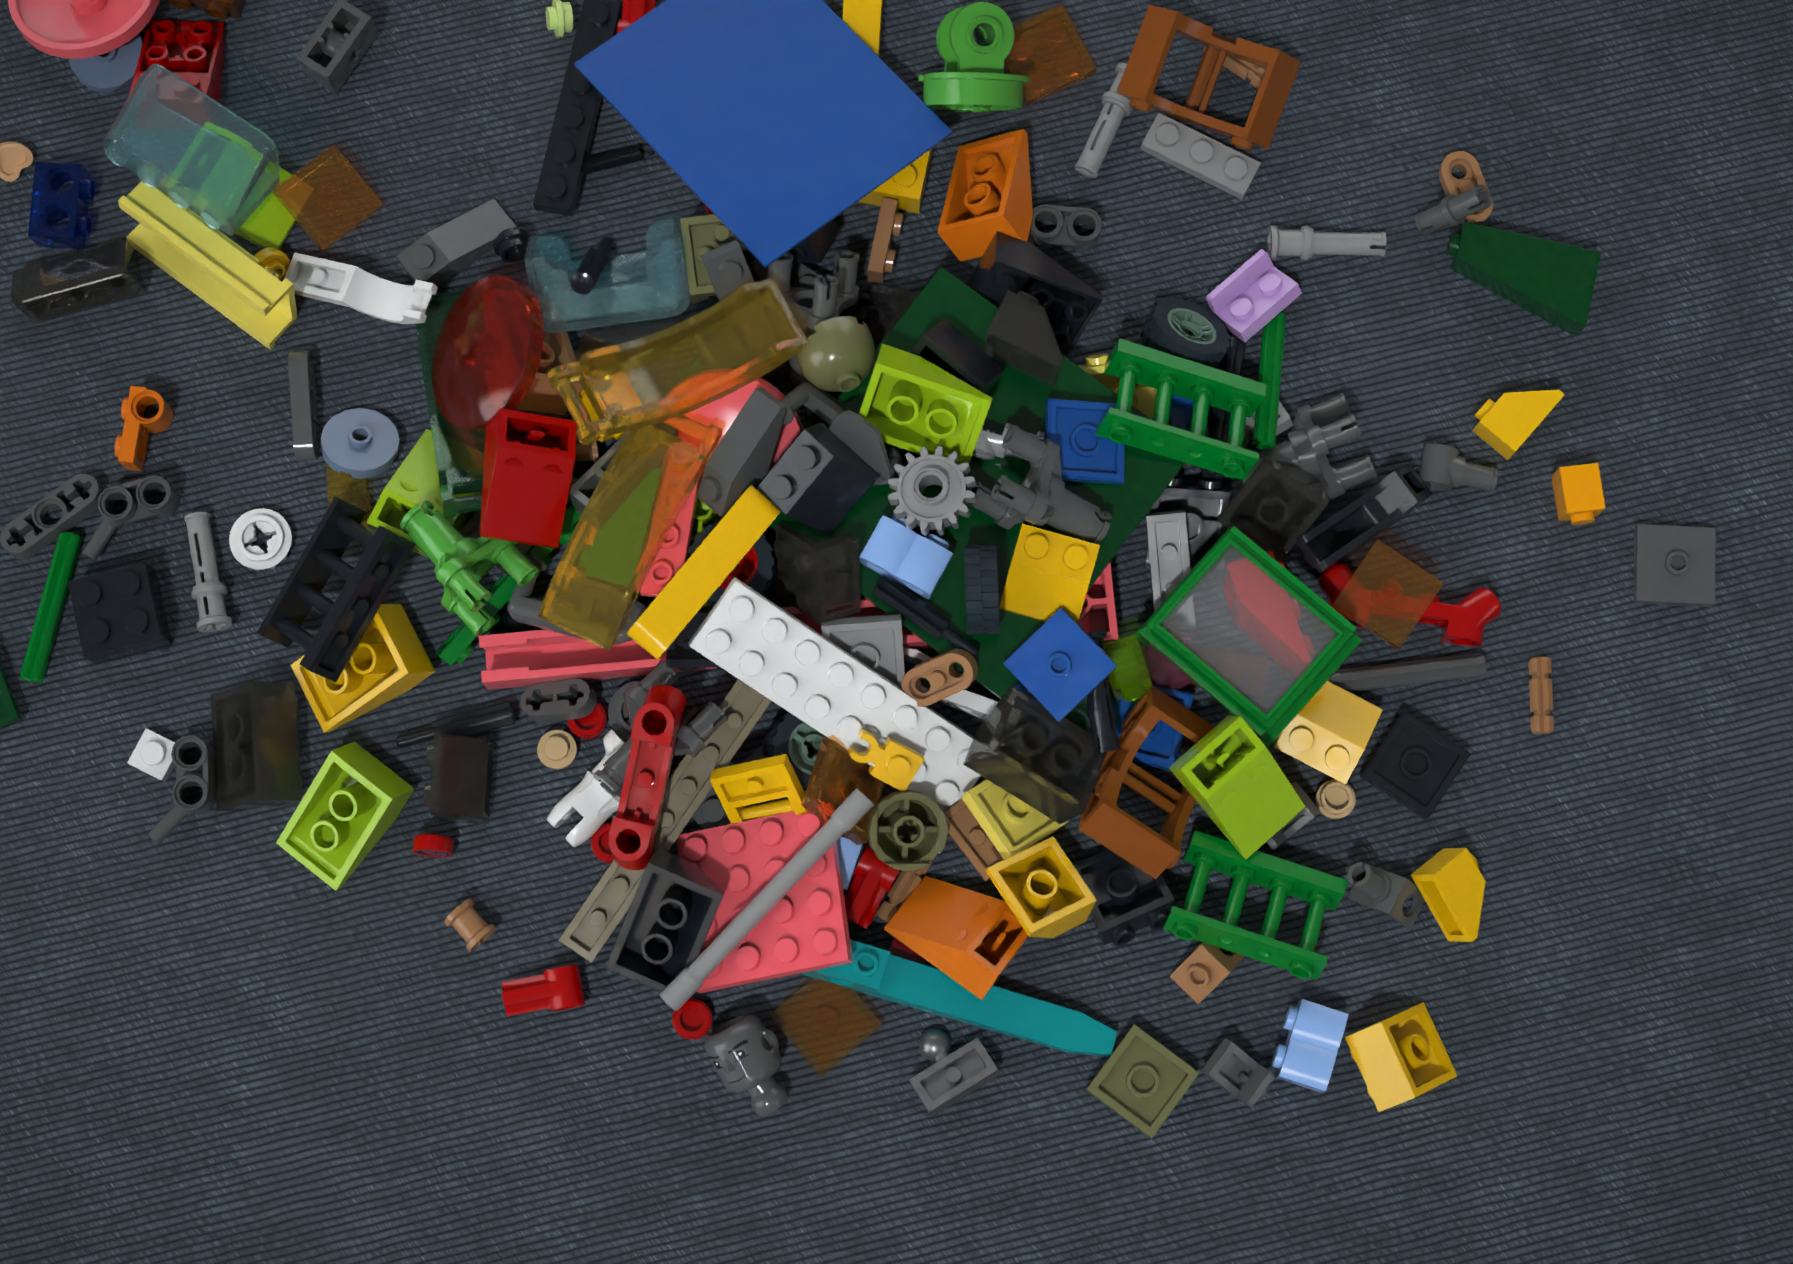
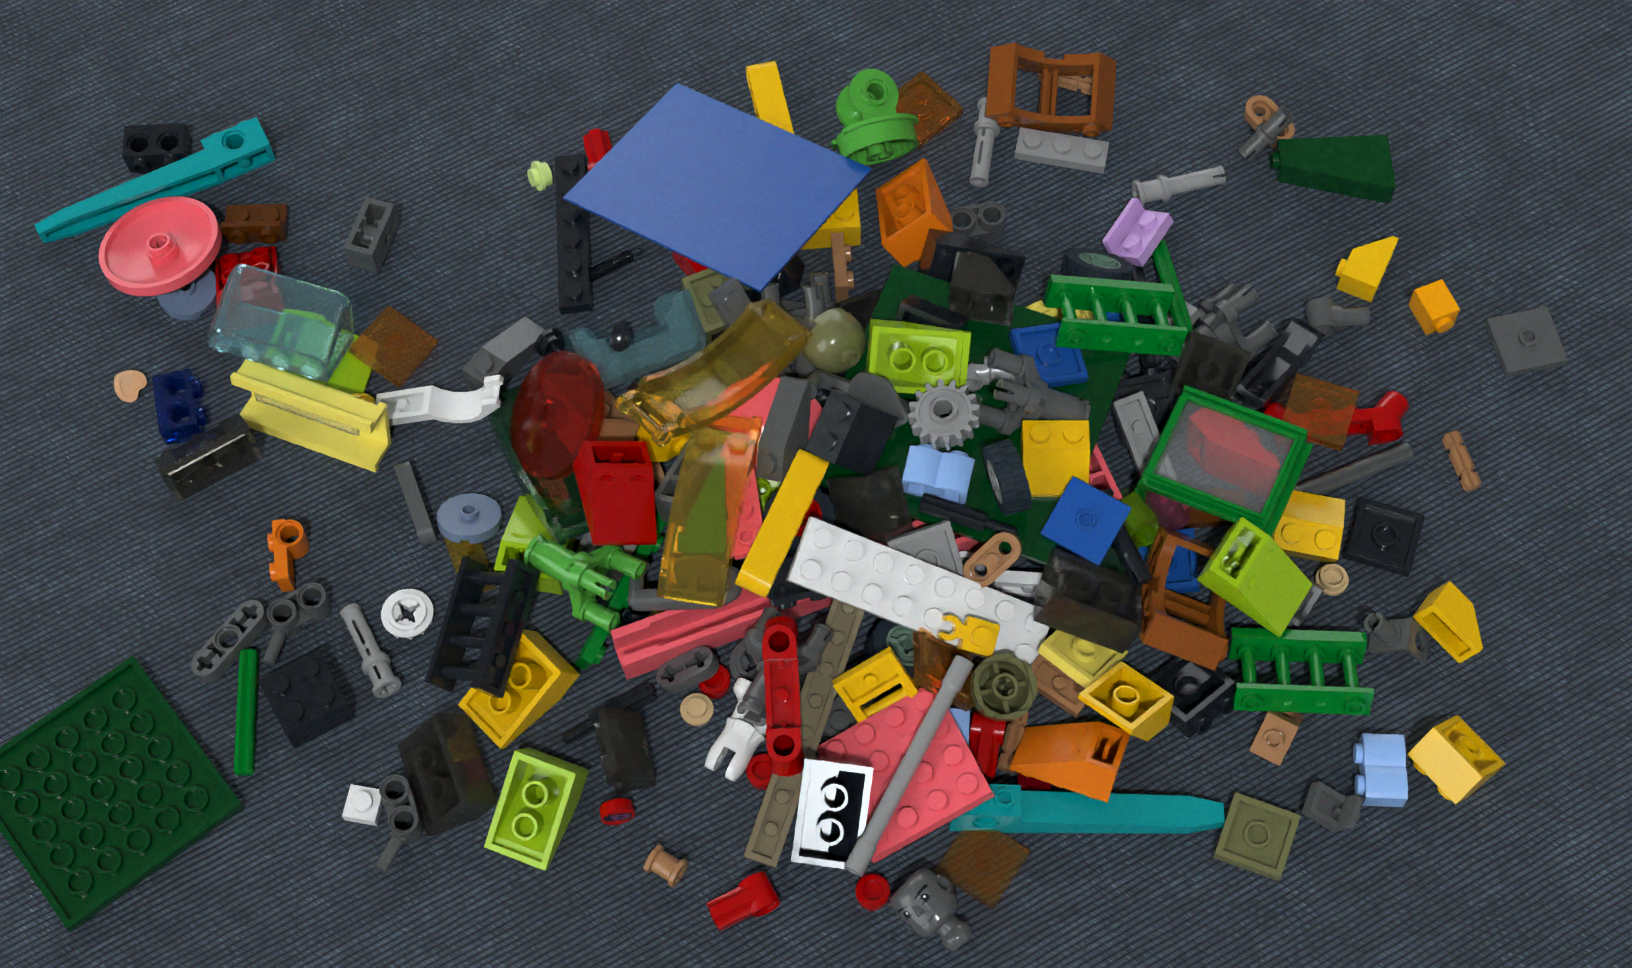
camera: 15 degrees left, 15 degrees down
(952, 1074) = (1099, 875): flat silver plate -> none

